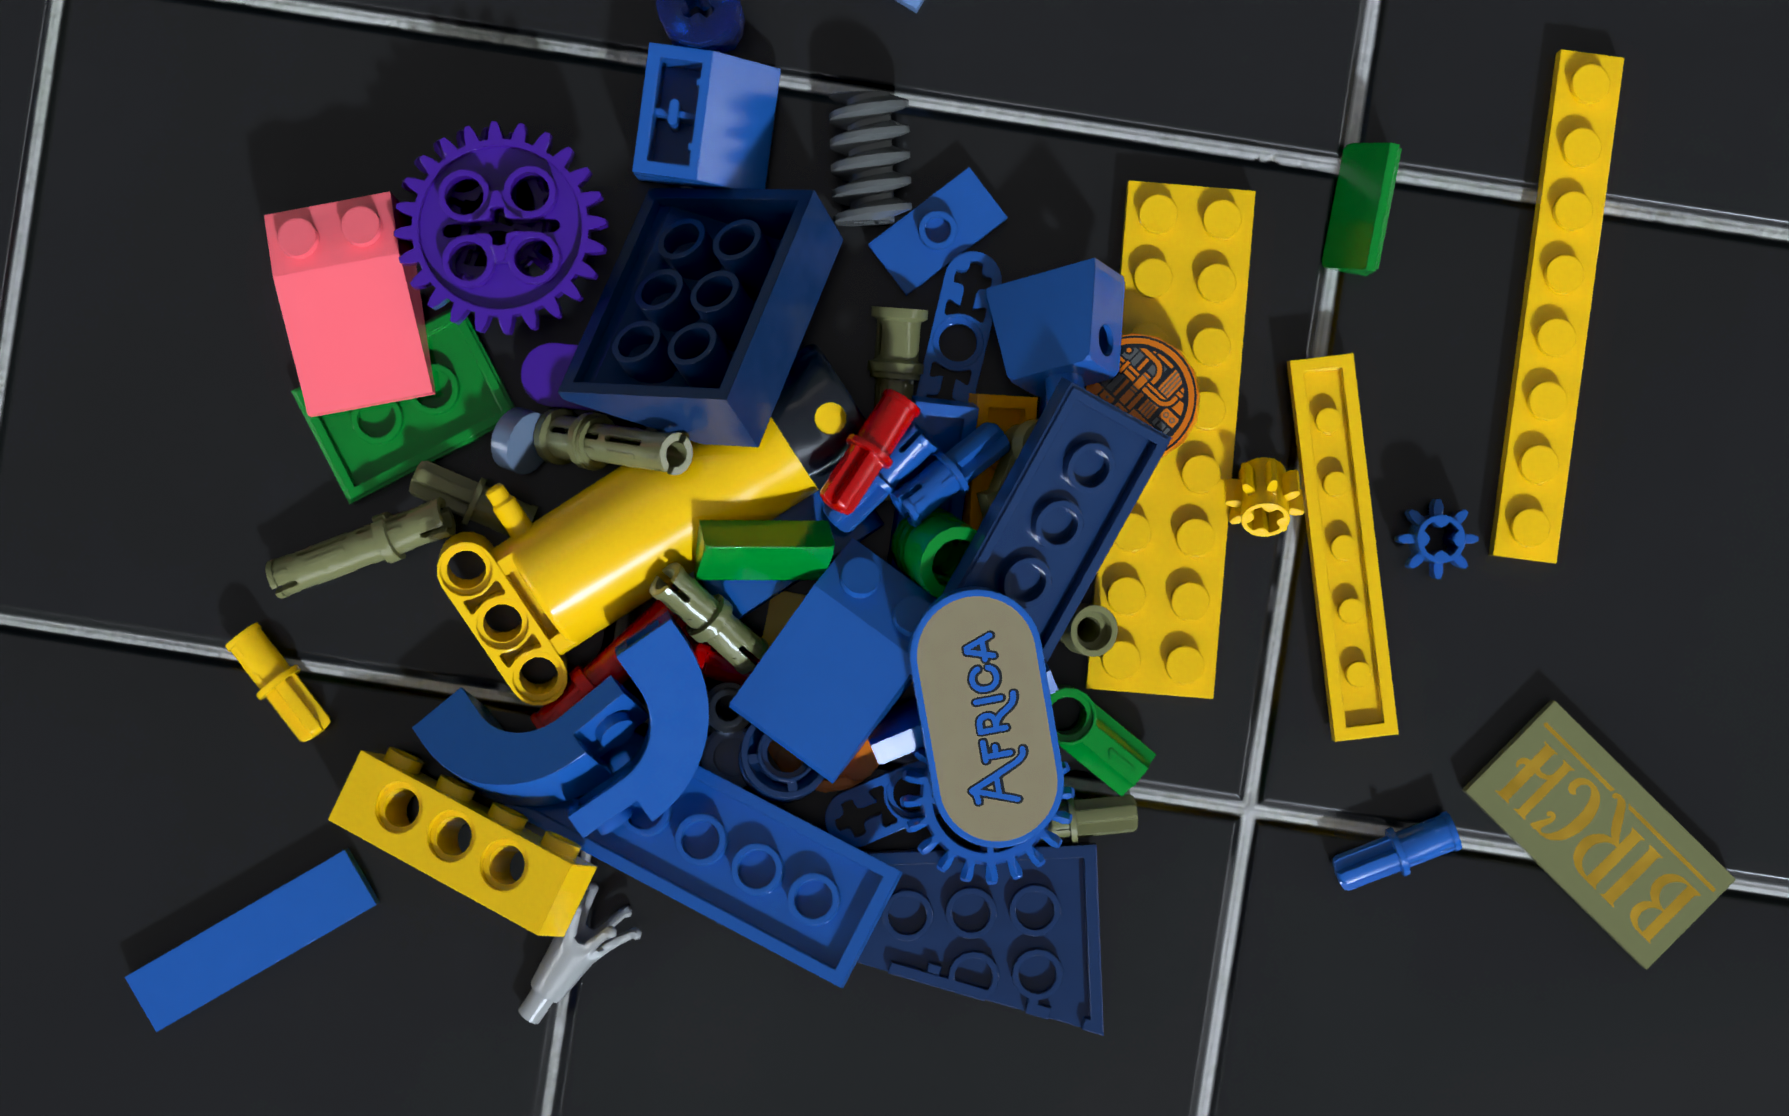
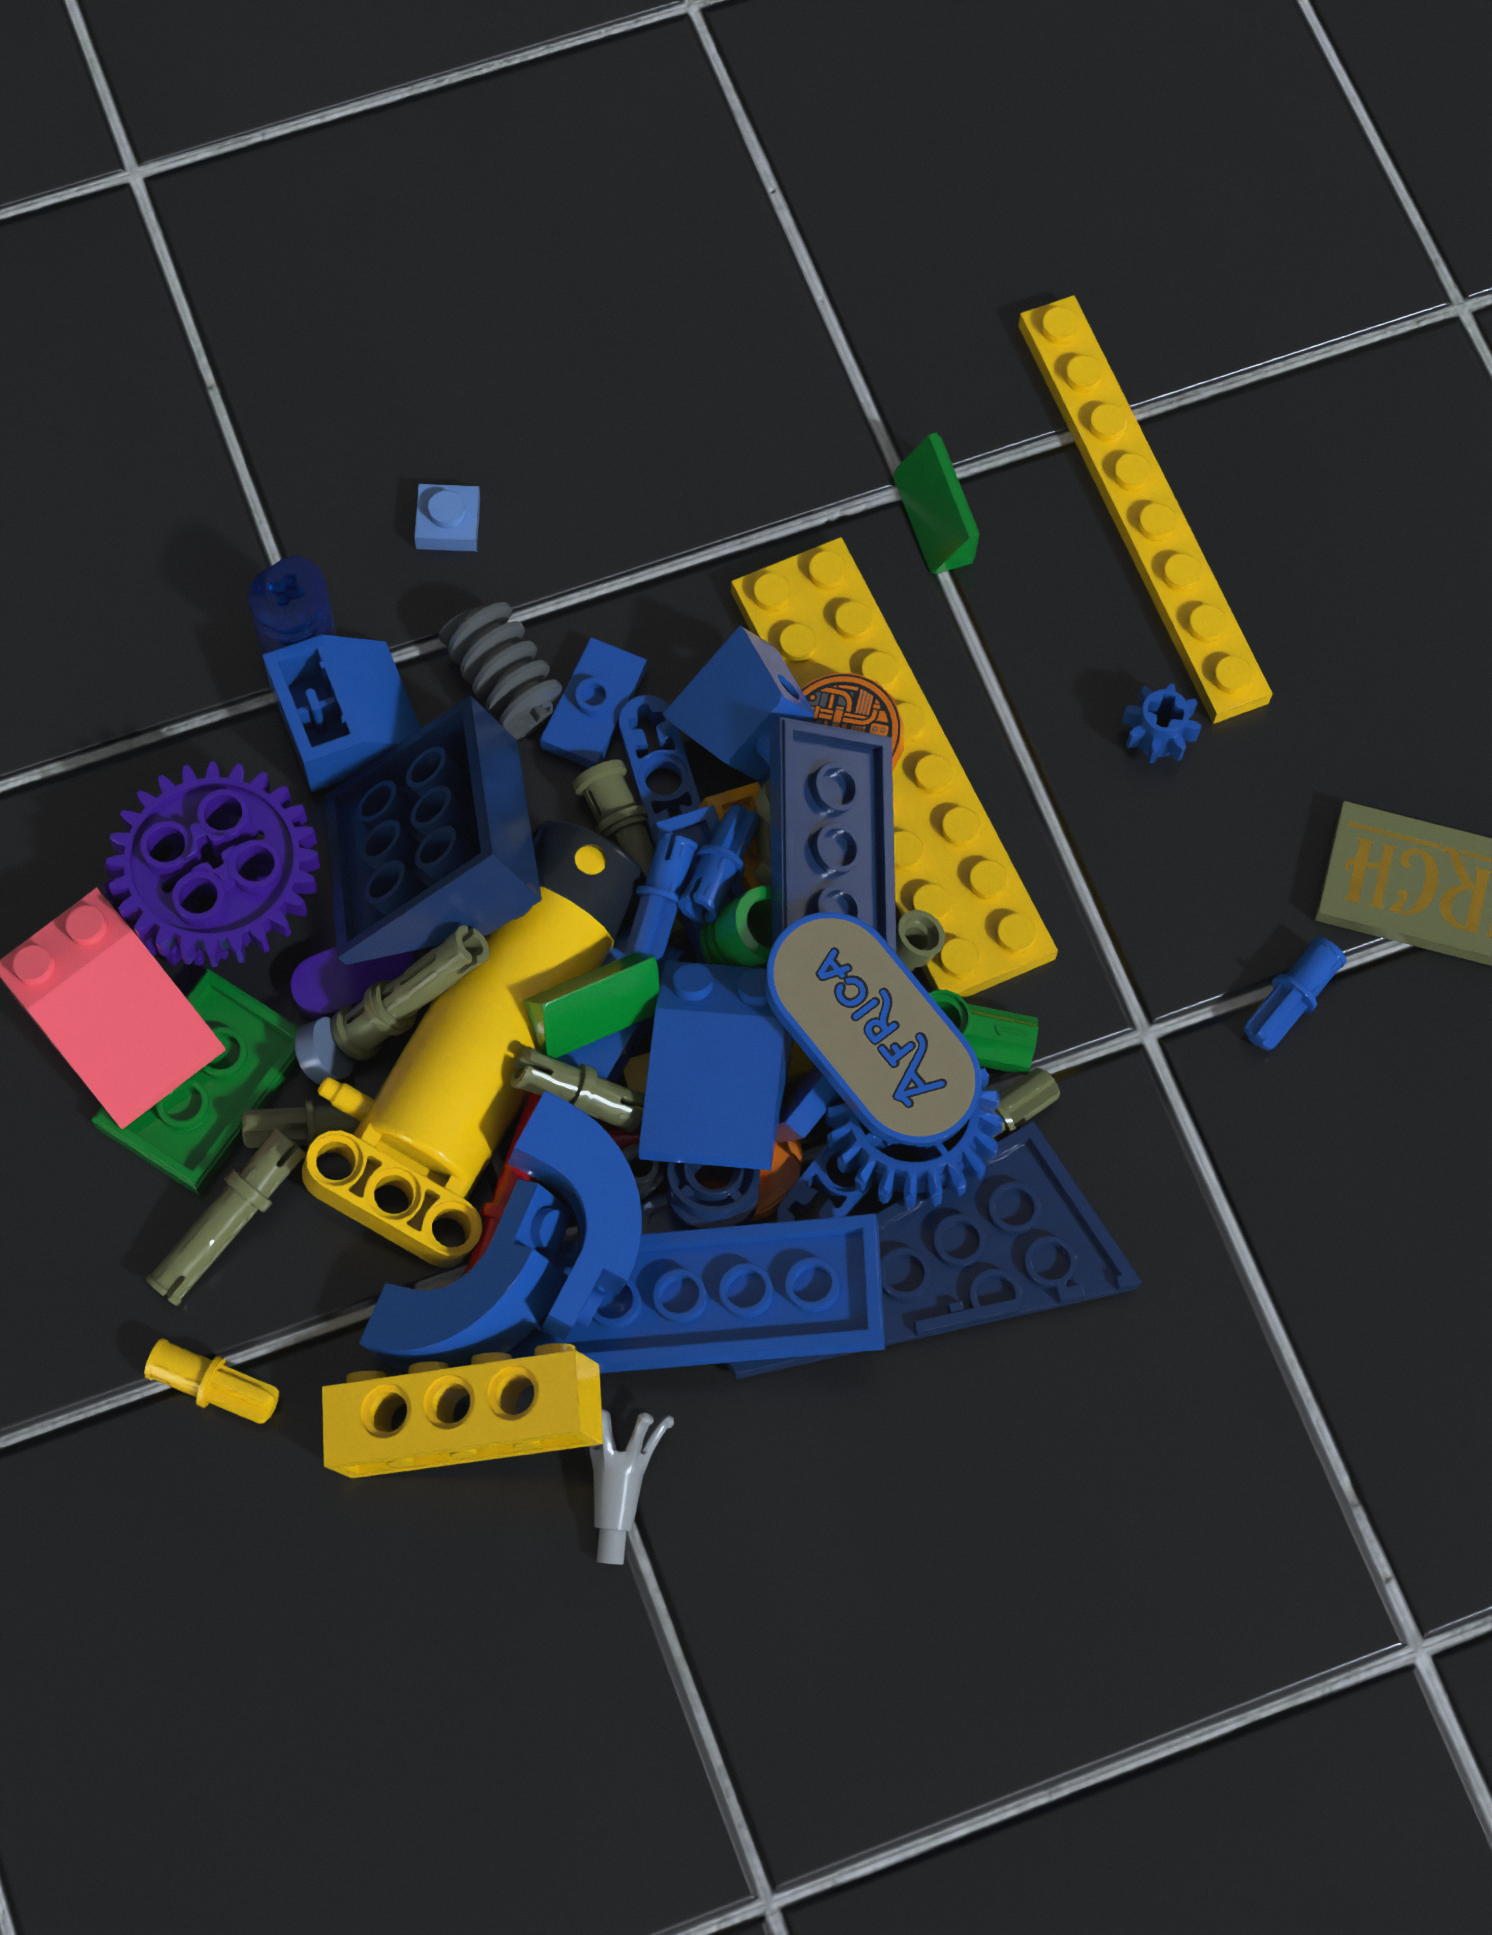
camera: 30 degrees left, 20 degrees down
(252, 939) = (307, 1637): blue tile -> none
(869, 451) = (640, 867): red axle -> none
(1264, 497) = (998, 762): yellow gear -> none
(1342, 547) = (1090, 774): yellow plate -> none

